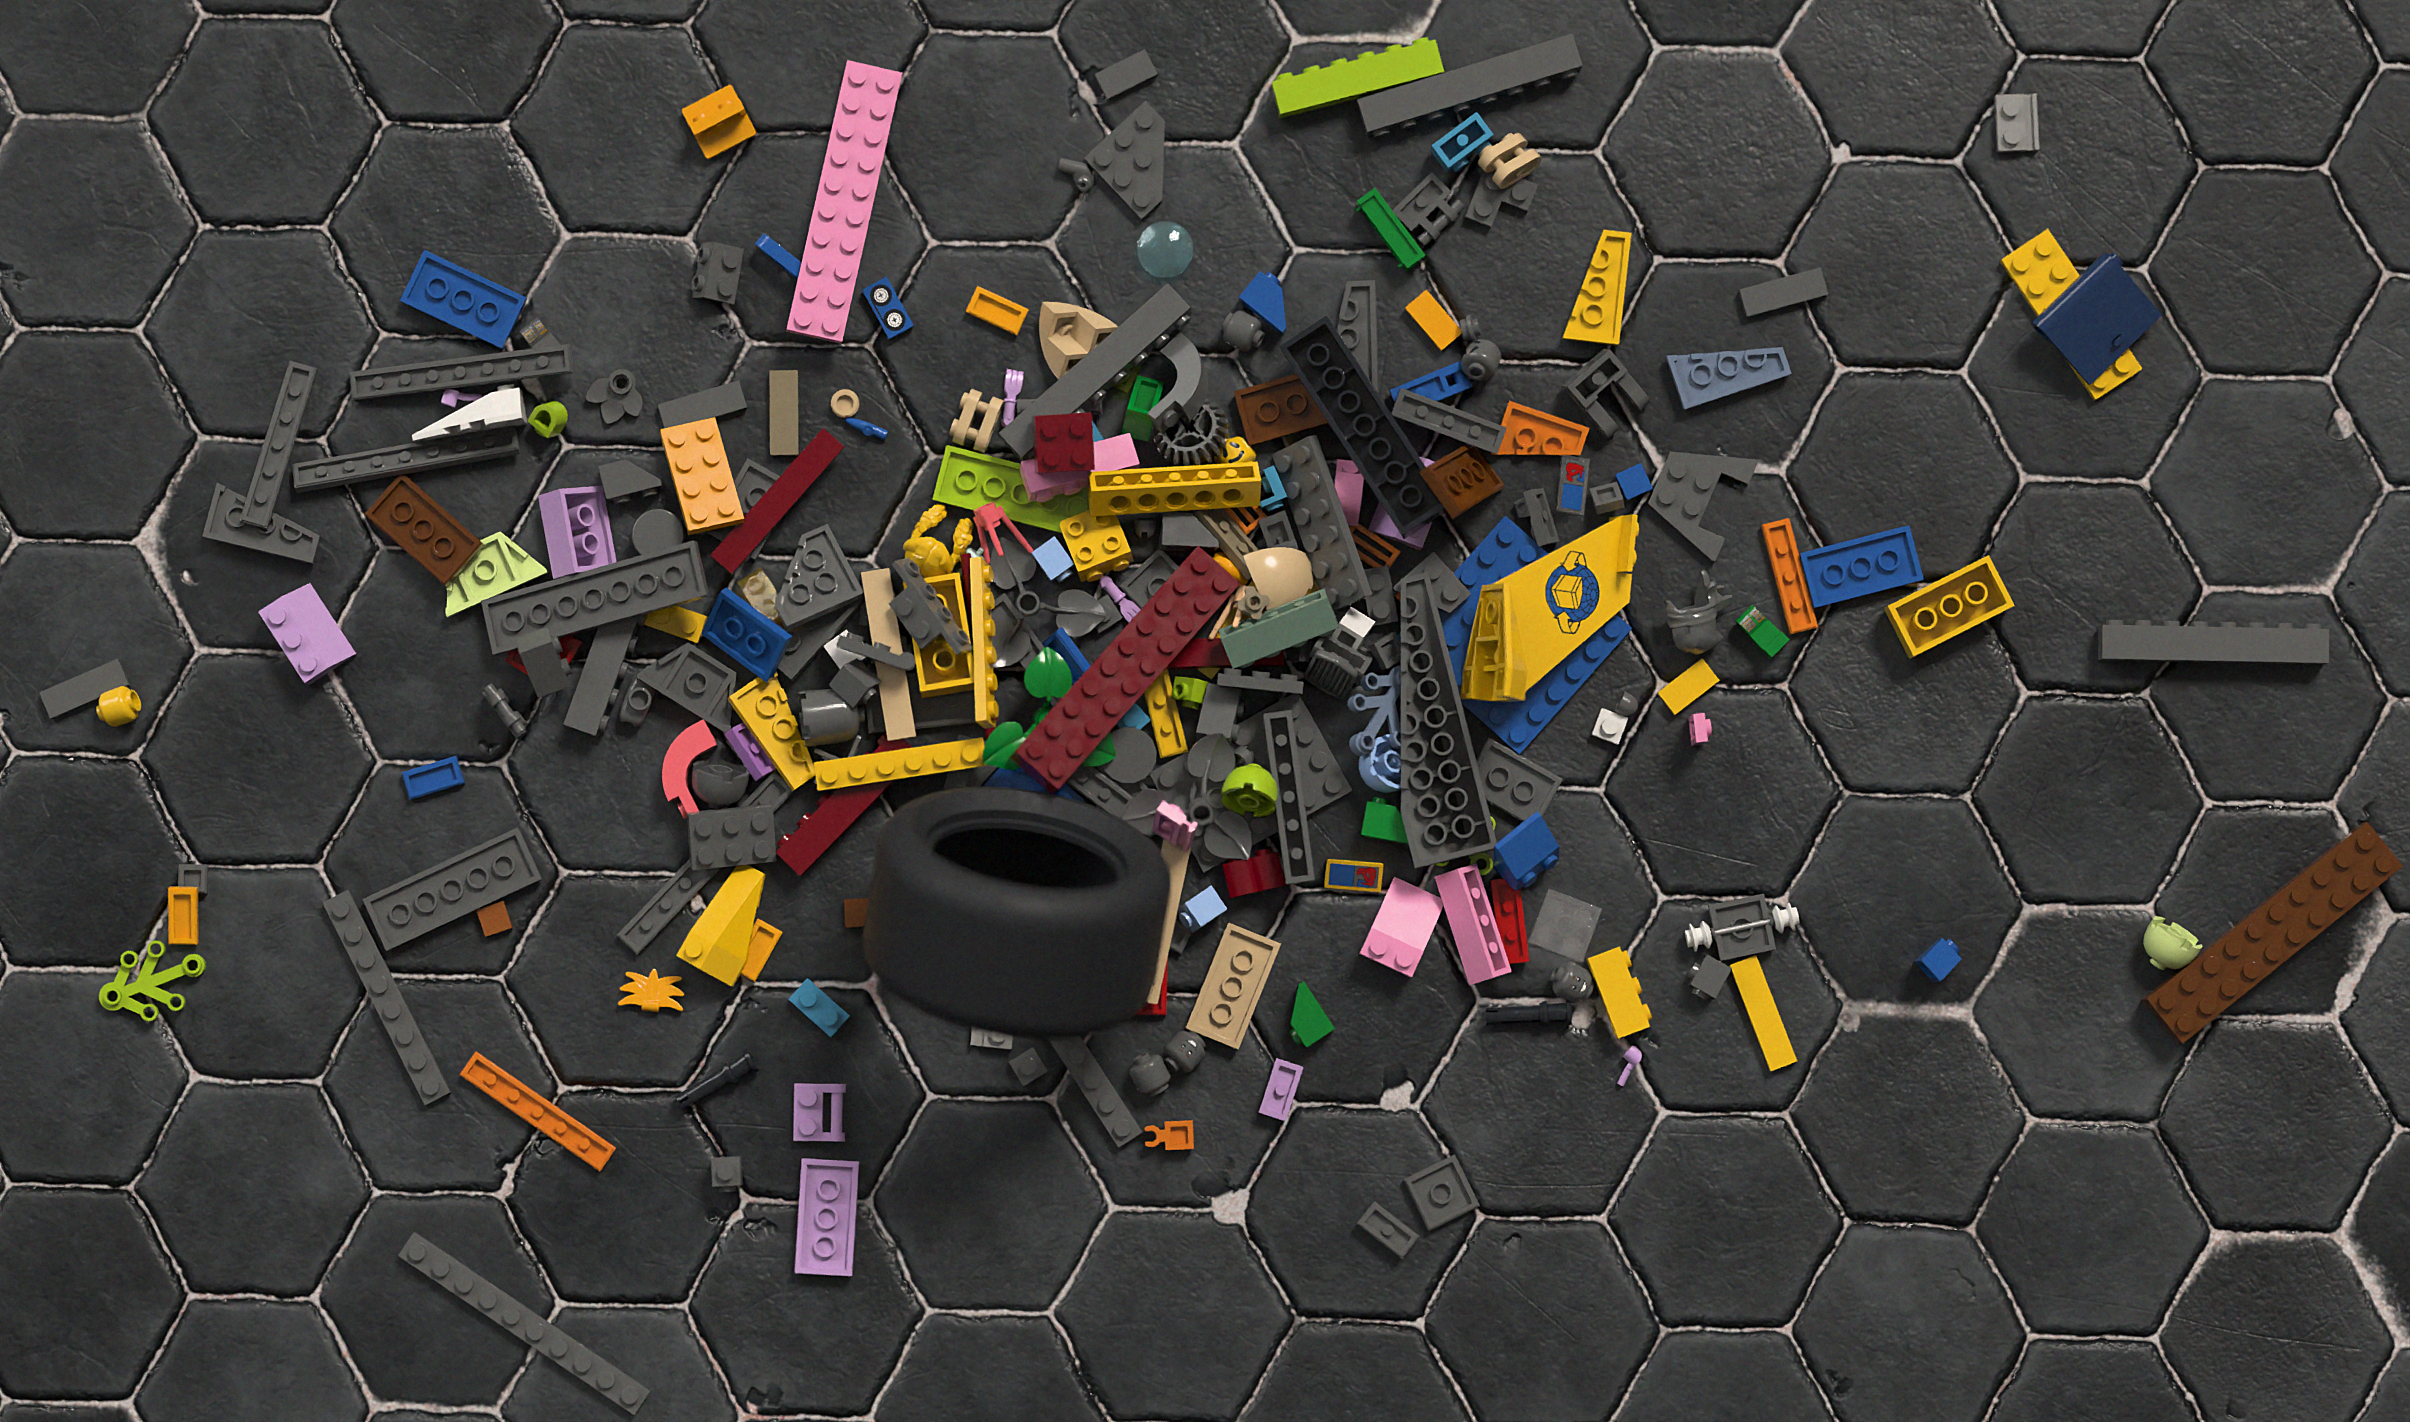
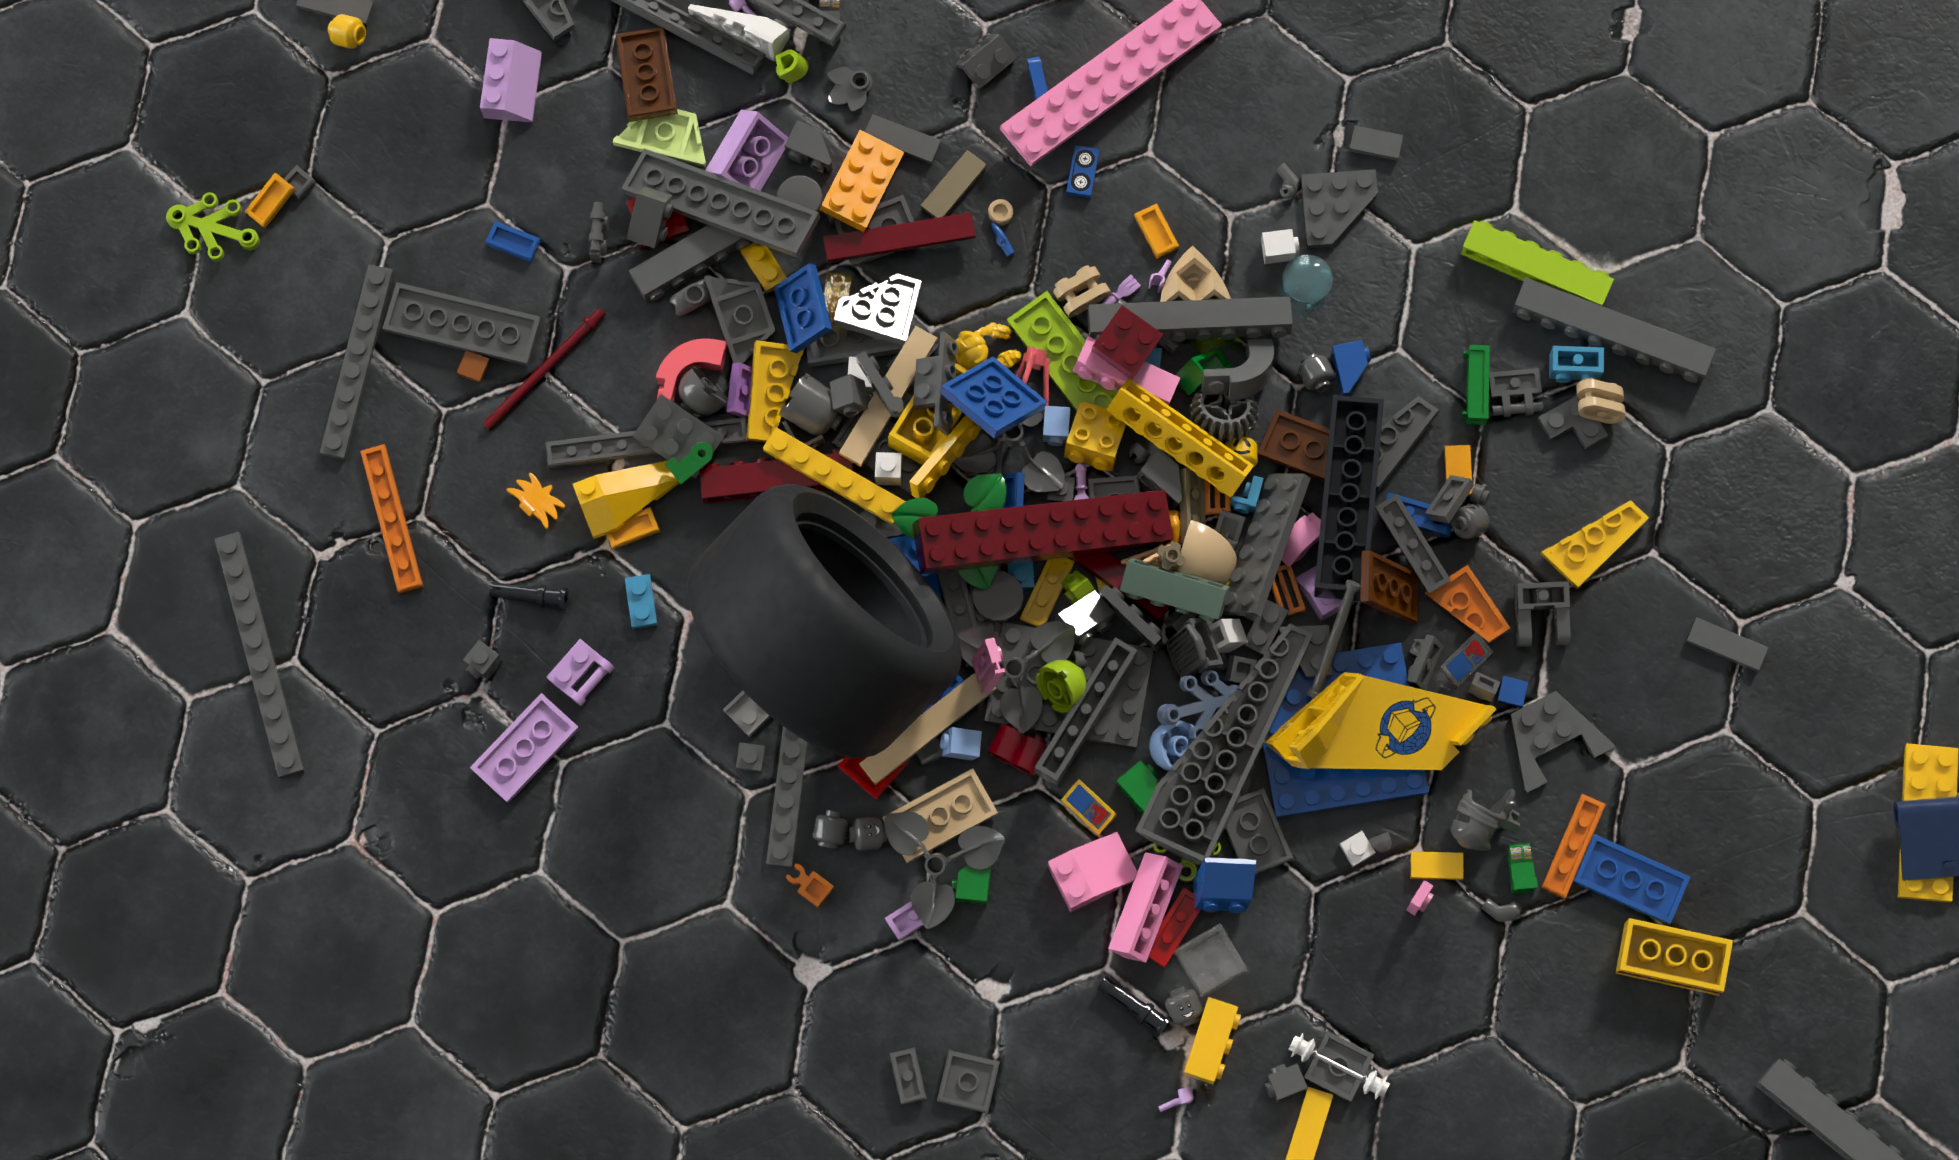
camera: 50 degrees right, 10 degrees down
(559, 869) = (539, 373): none -> dark red bar
(765, 852) = (698, 457): none -> green leg
(941, 718) = (888, 468): none -> white brick
(986, 586) = (993, 397): none -> blue plate
(1034, 353) = (1159, 278): none -> lavender hand
(1118, 240) = (1279, 246): none -> white brick
(1287, 1066) = (935, 901): none -> dark grey plant
(1435, 510) = (1351, 588): none -> dark grey bar
(1449, 355) = (1449, 499): none -> dark grey plate
(1717, 375) = (1633, 665): sand blue wing -> none
(1775, 683) = (1504, 912): none -> dark grey arm

